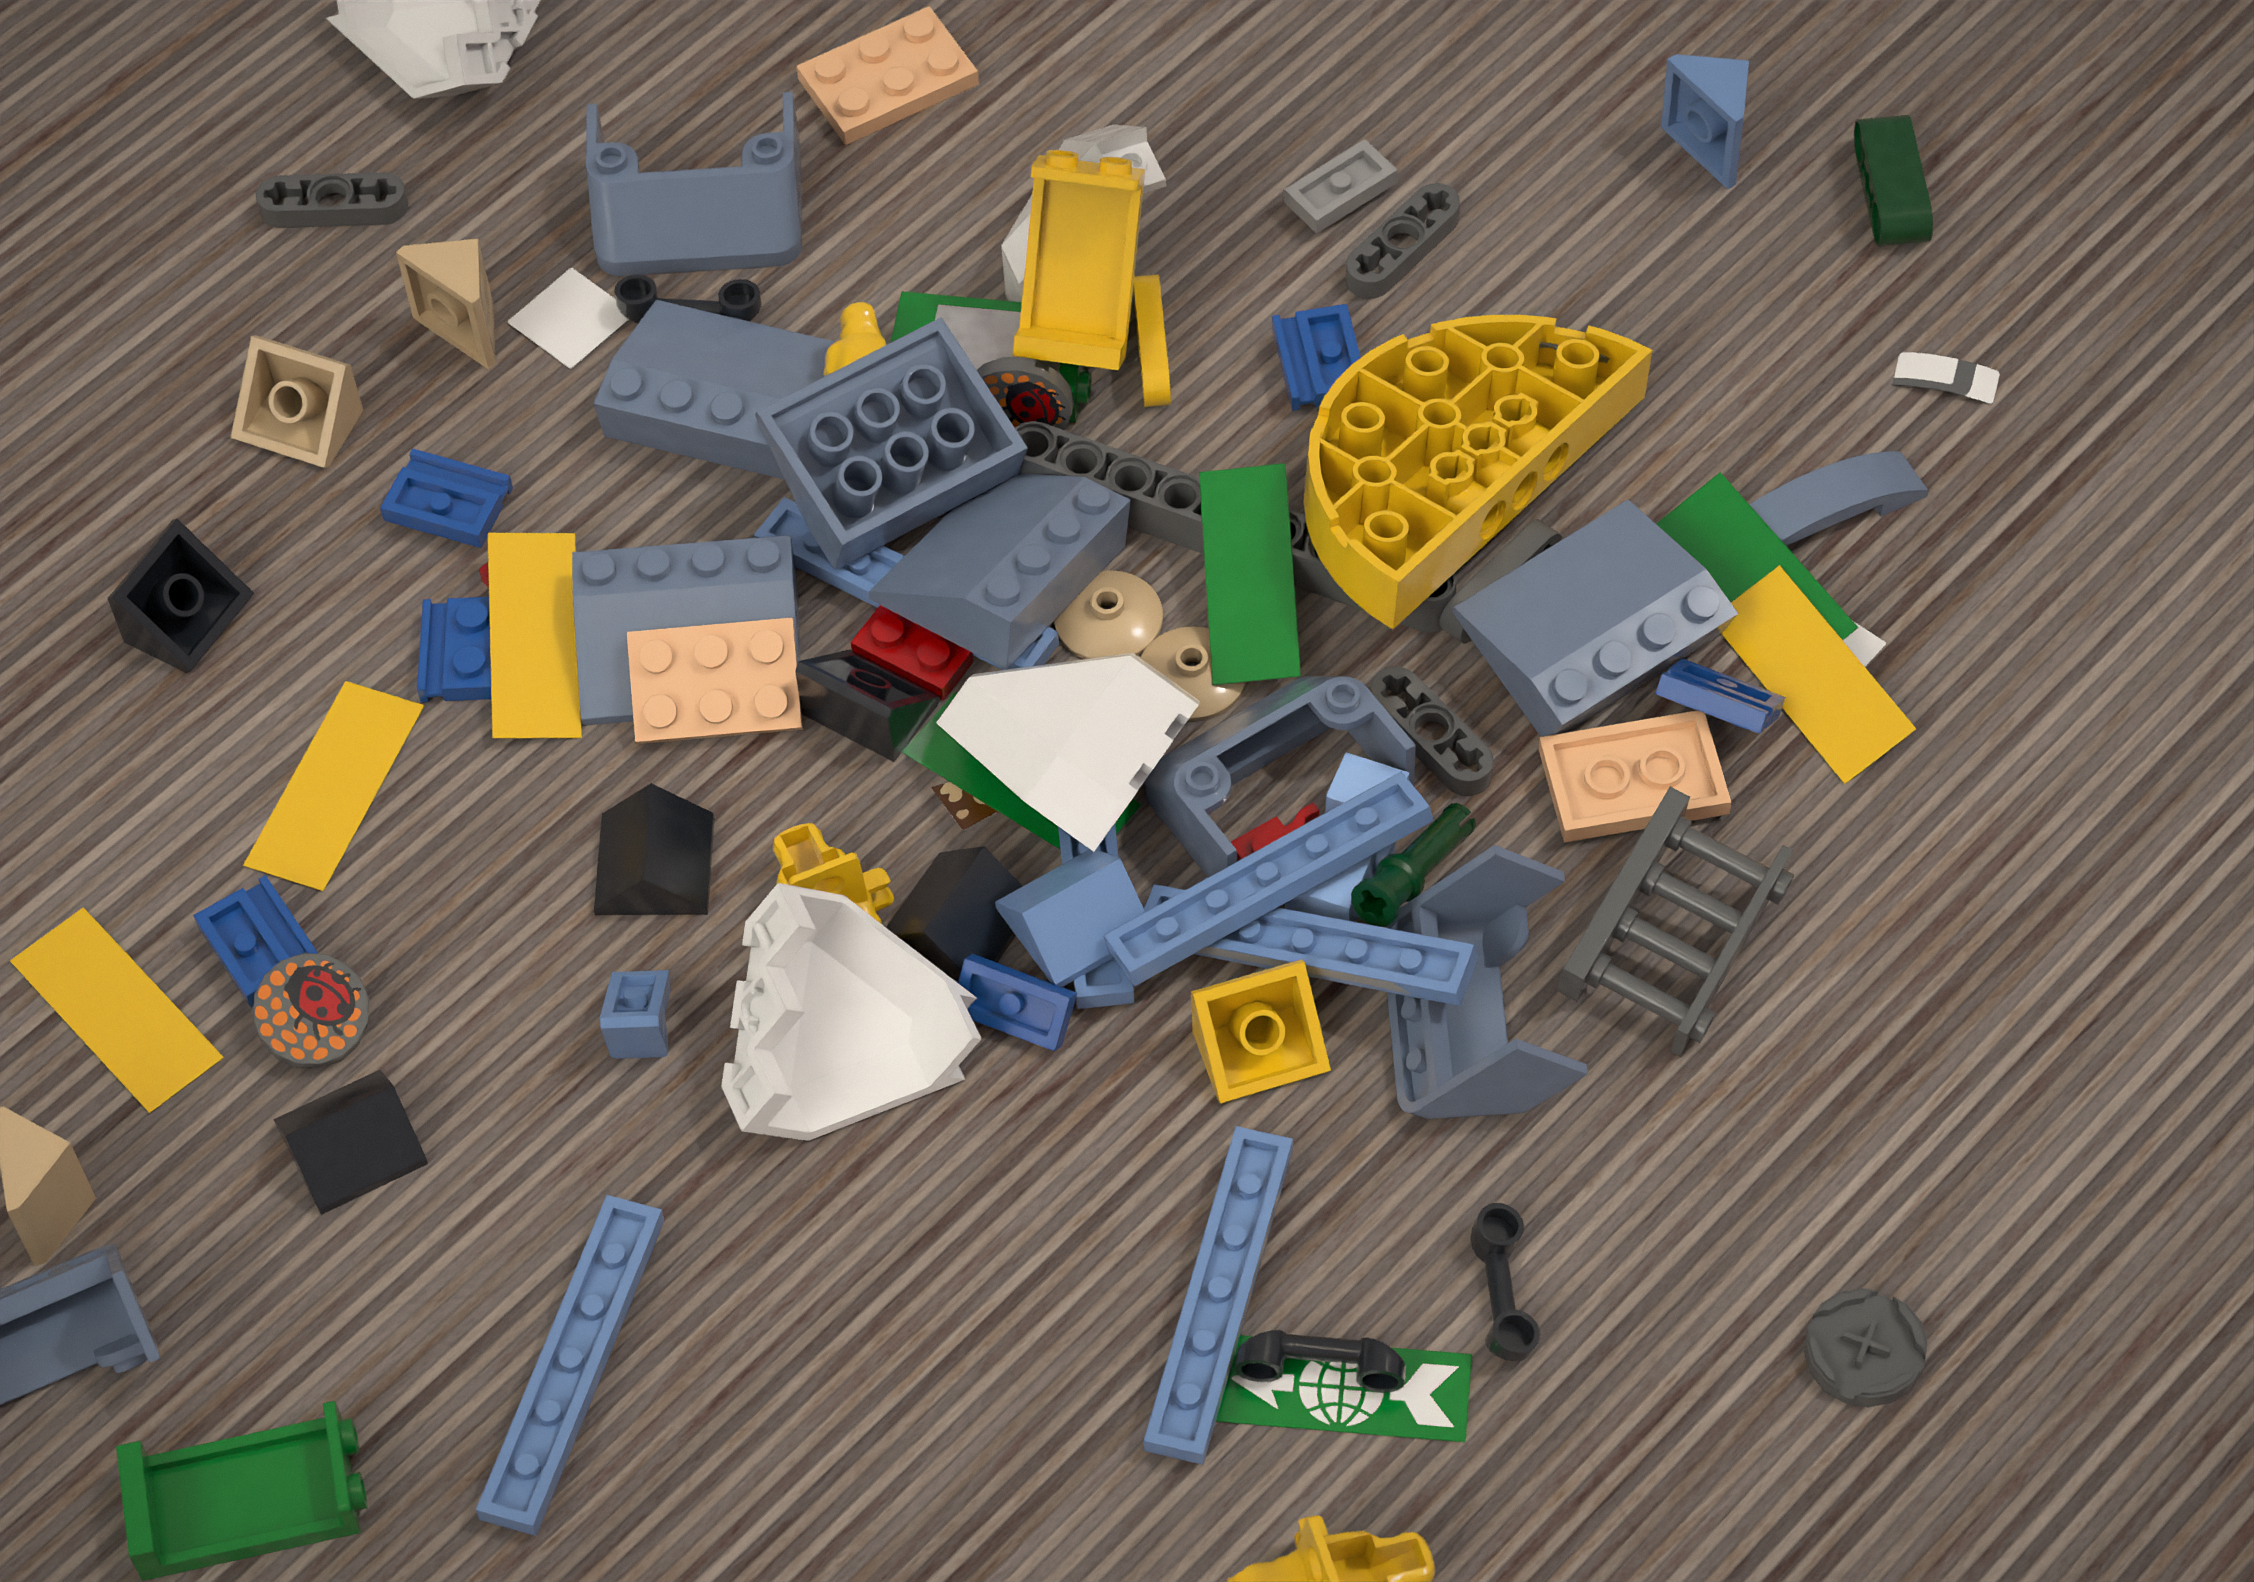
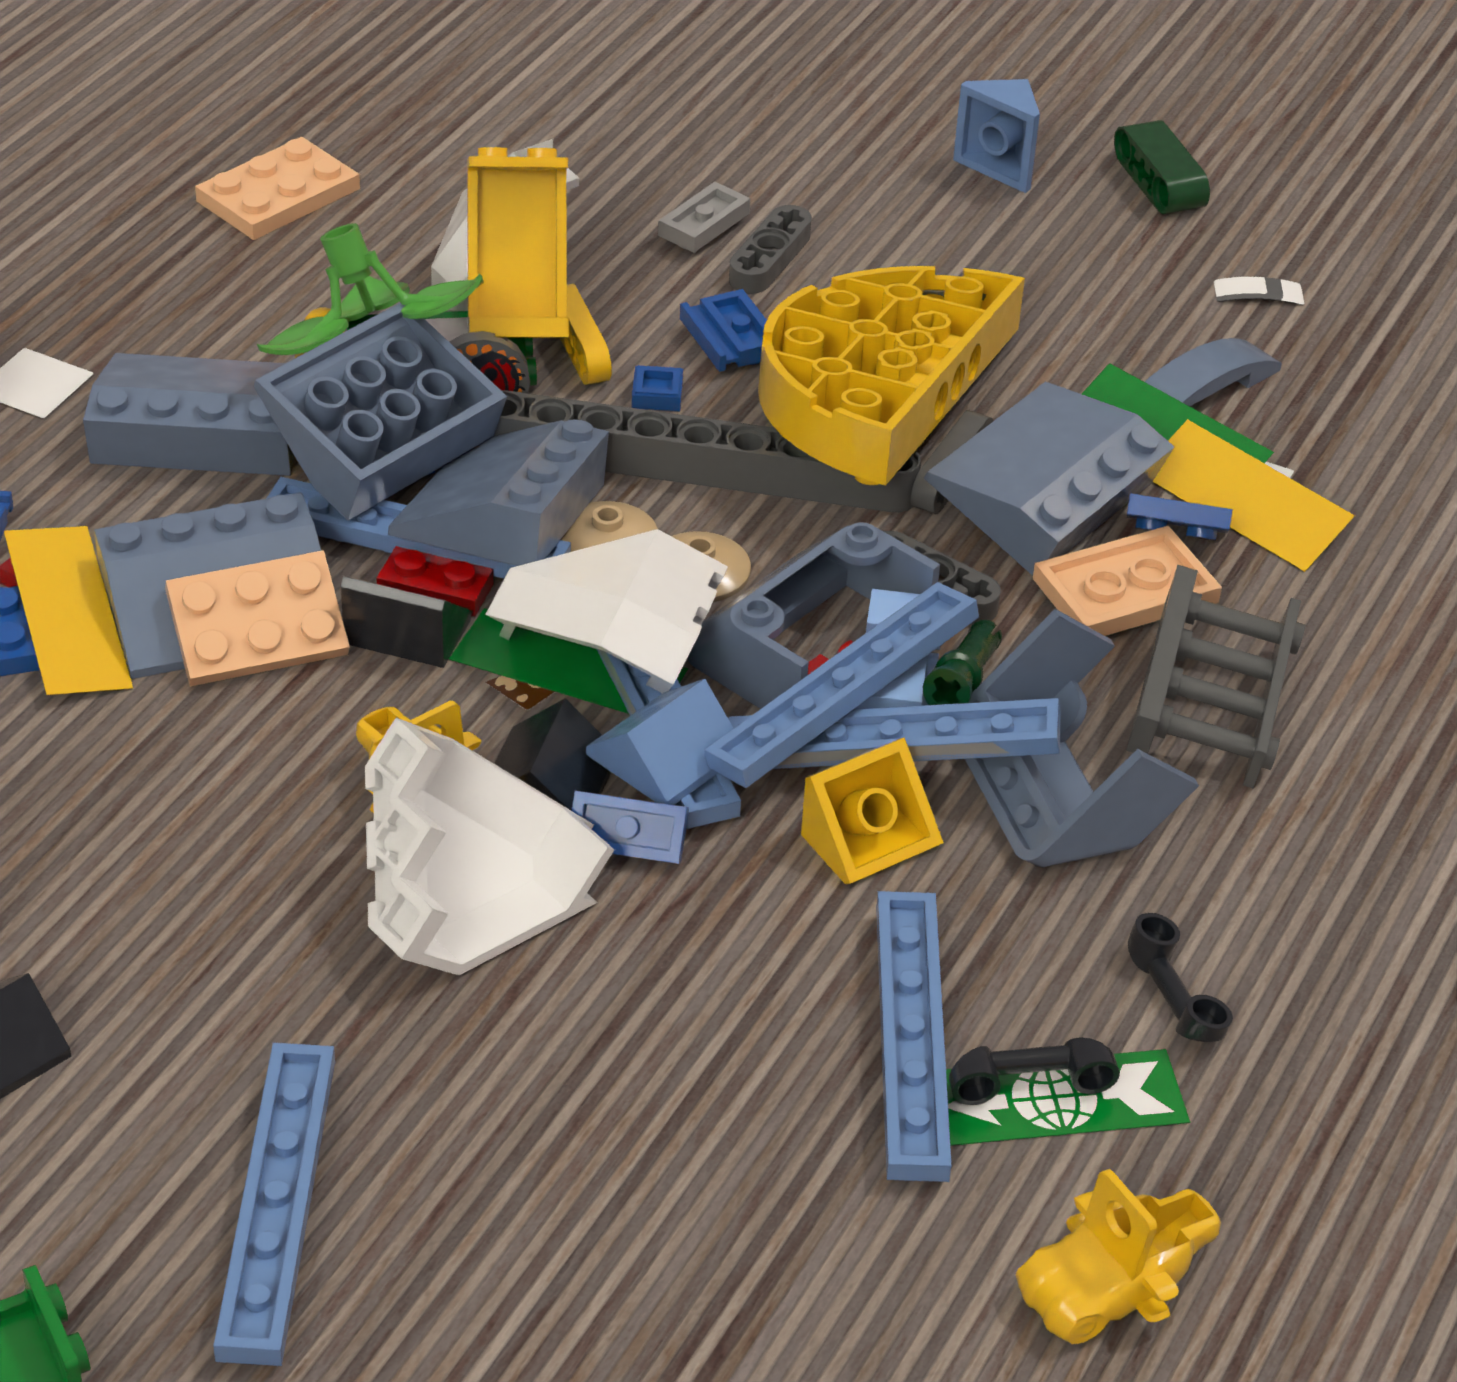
camera: 20 degrees left, 15 degrees down
(635, 1014) = (260, 894): medium blue slope -> none
(654, 856) = (233, 765): black slope -> none
(696, 215) = (132, 286): sand blue windscreen -> none
(736, 298) = (97, 350): black bar -> none
(905, 284) = (352, 264): none -> bright green plant
(1218, 424) = (657, 388): none -> blue tile
(1249, 574) = (733, 476): green sticker -> none

